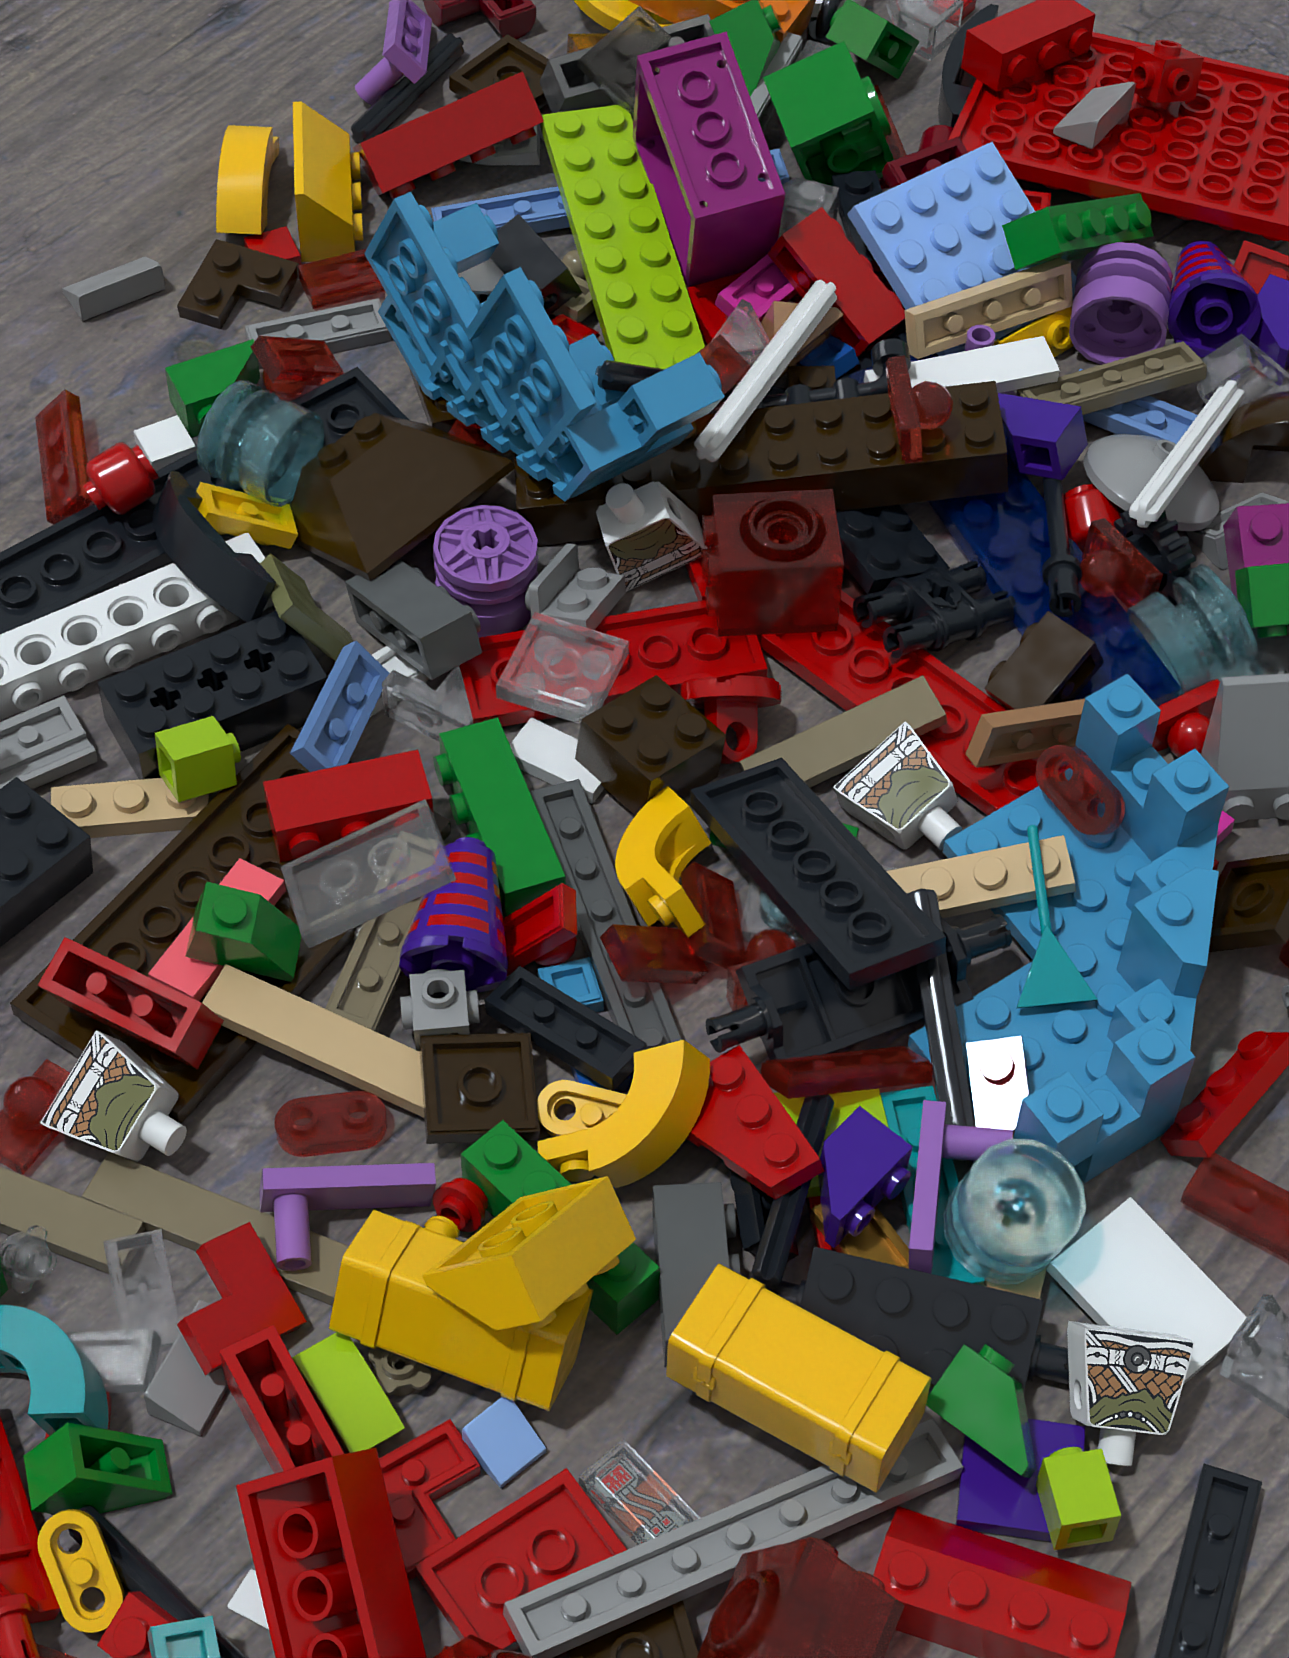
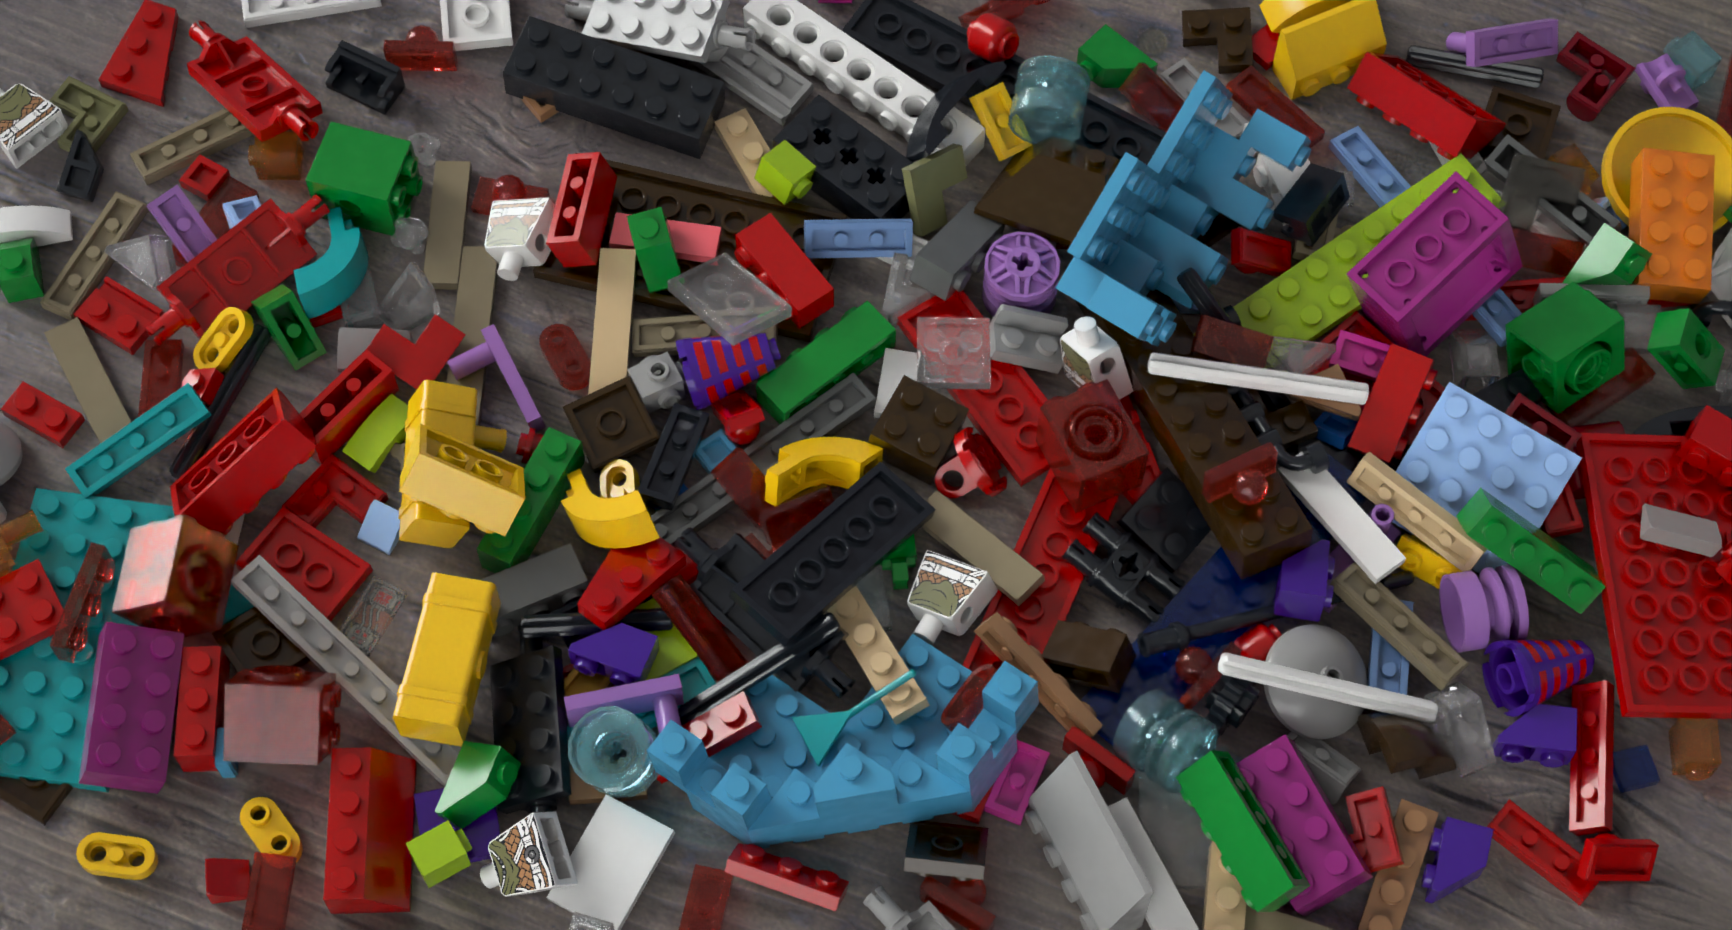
camera: 70 degrees right, 10 degrees up
(164, 442) = (1058, 47): white tile -> none

